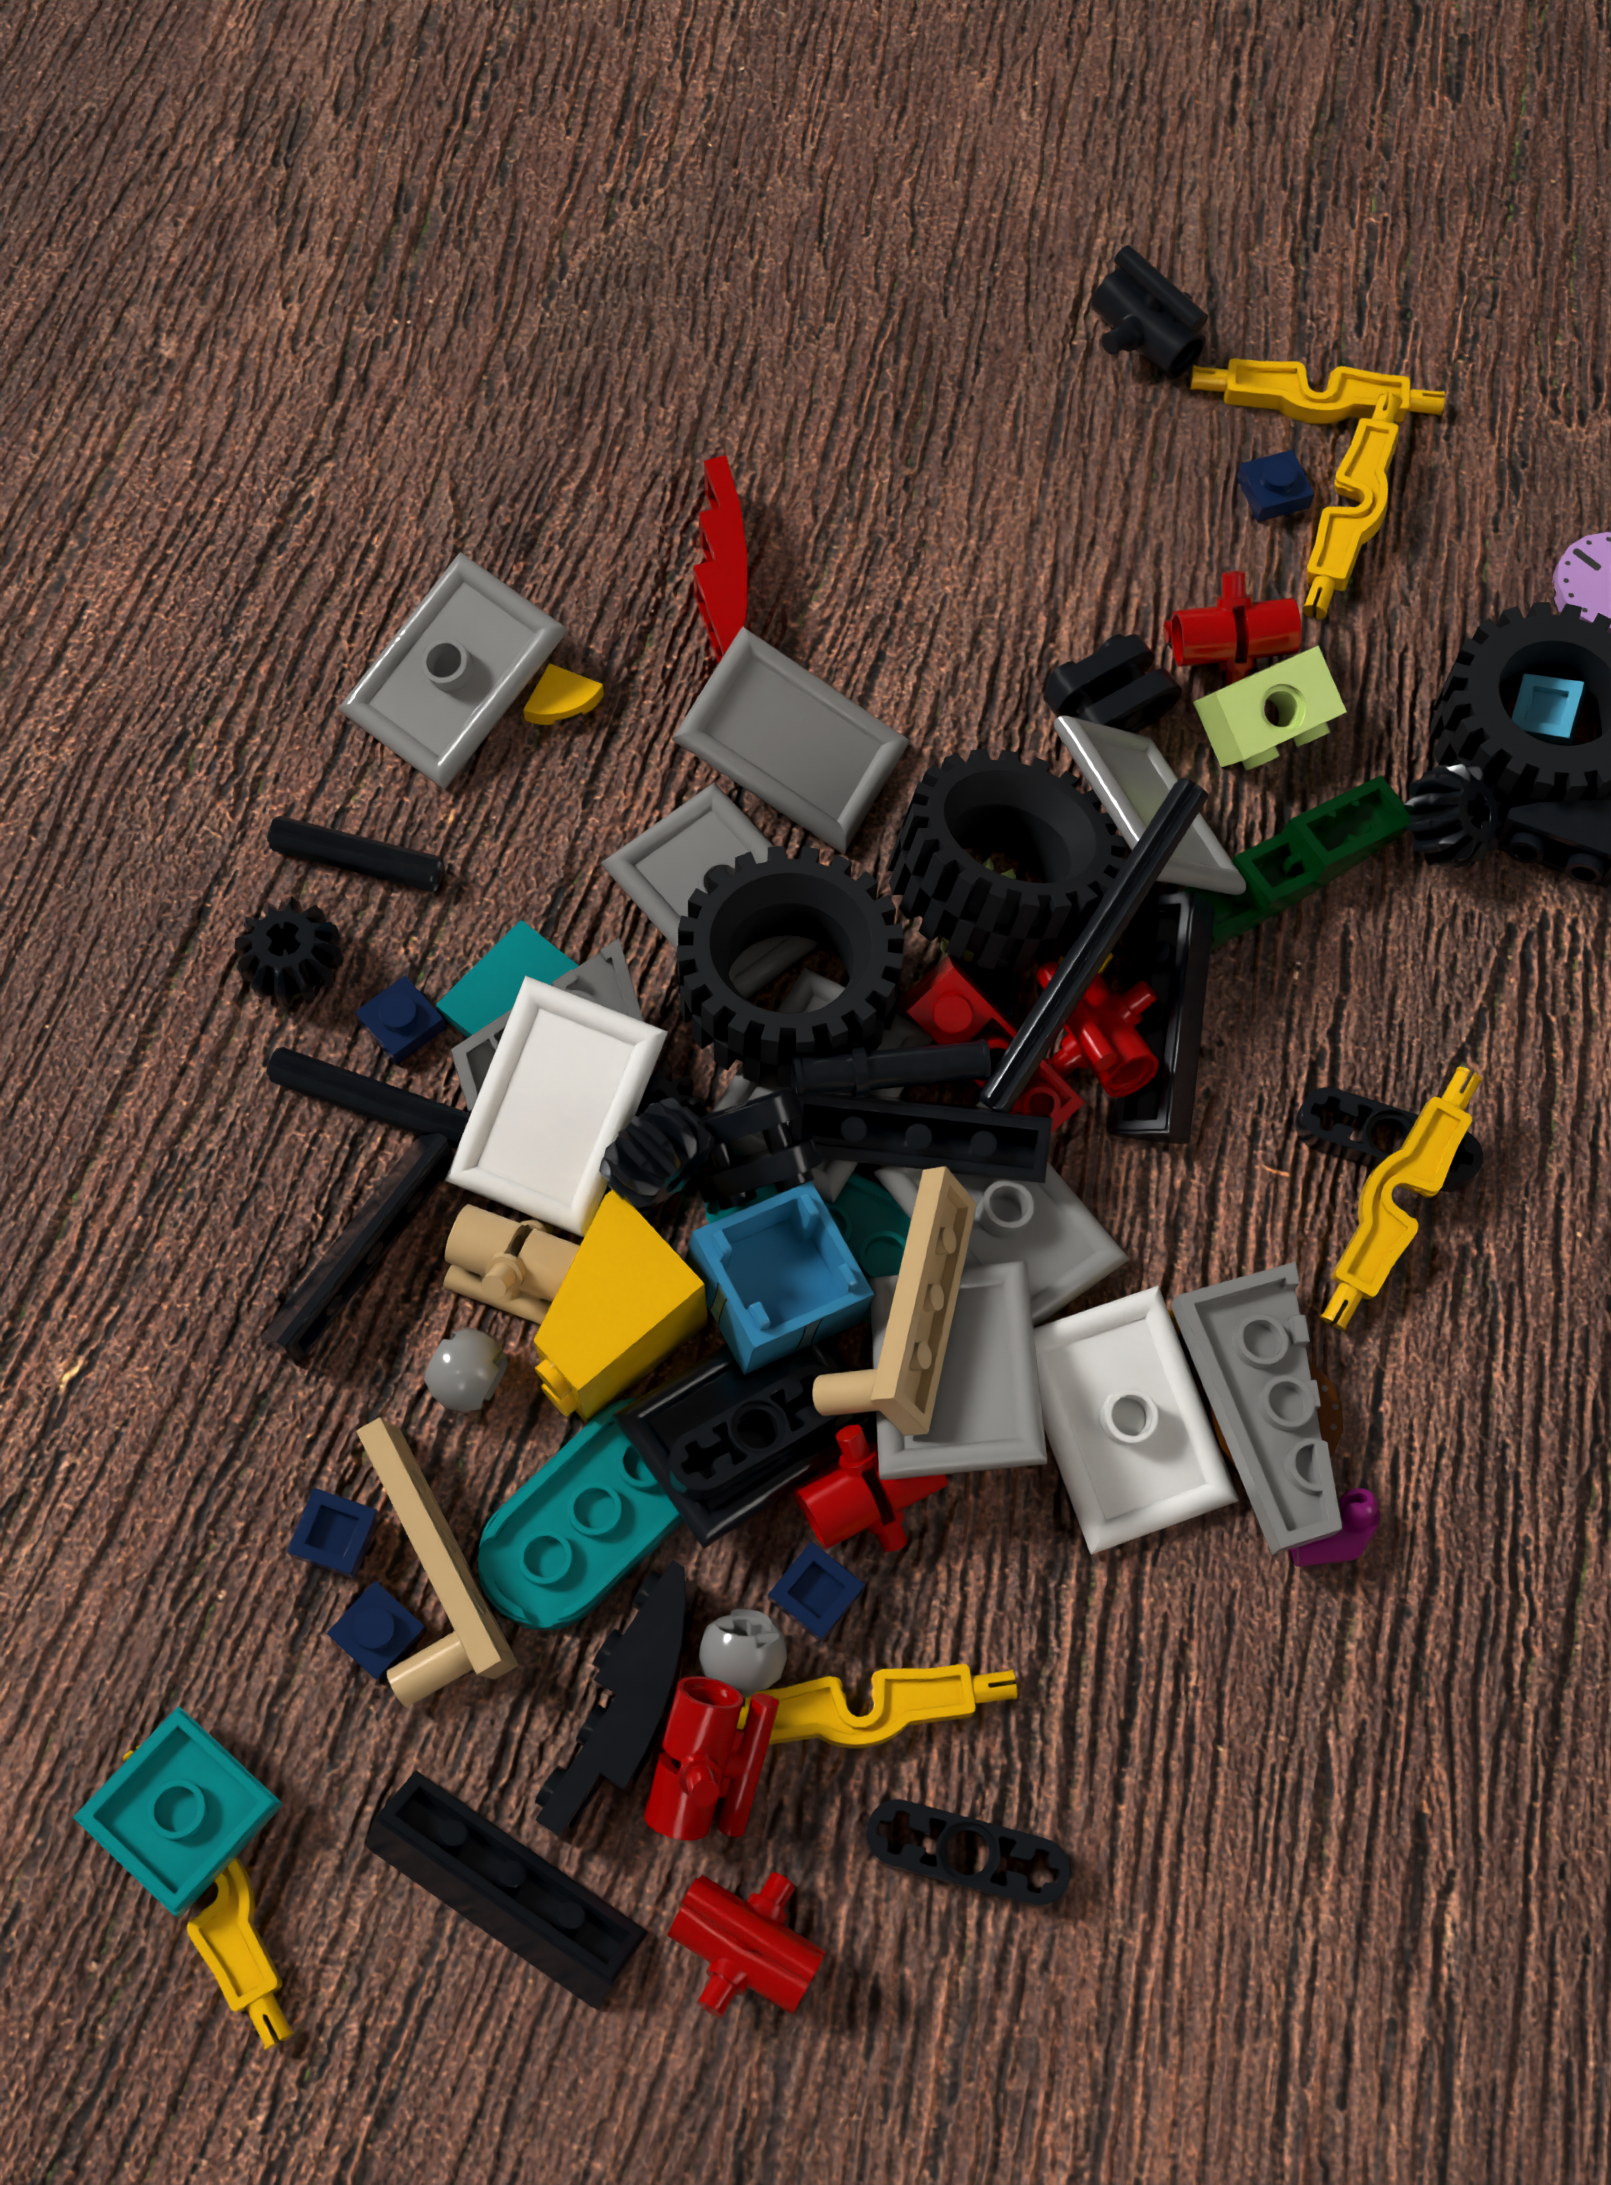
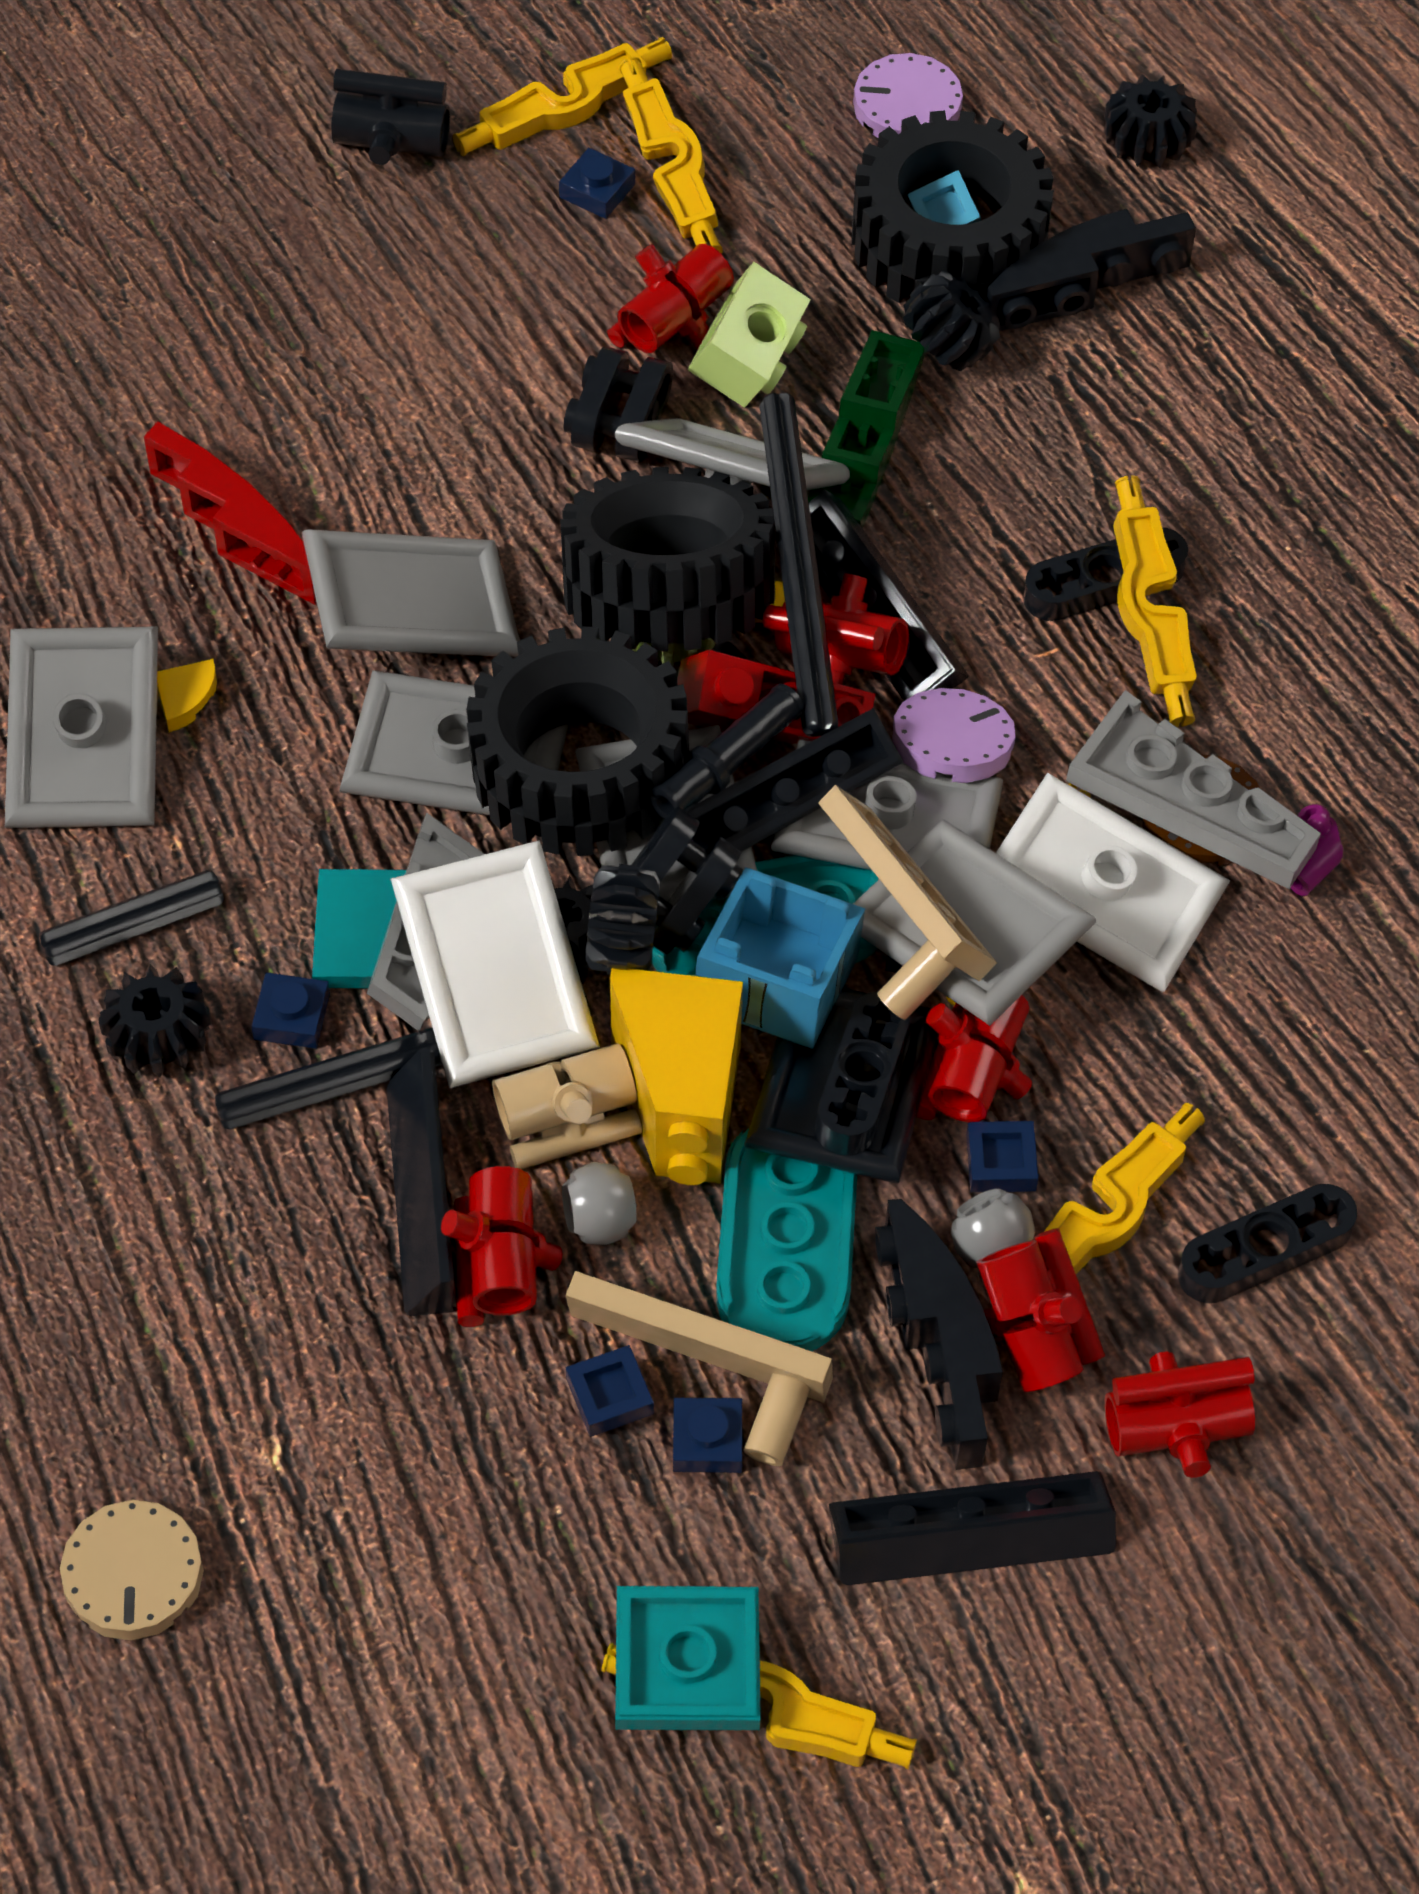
camera: 40 degrees left, 10 degrees down
(357, 1343) = (497, 1245): none -> red pin
(1119, 1187) = (953, 734): none -> lavender tile

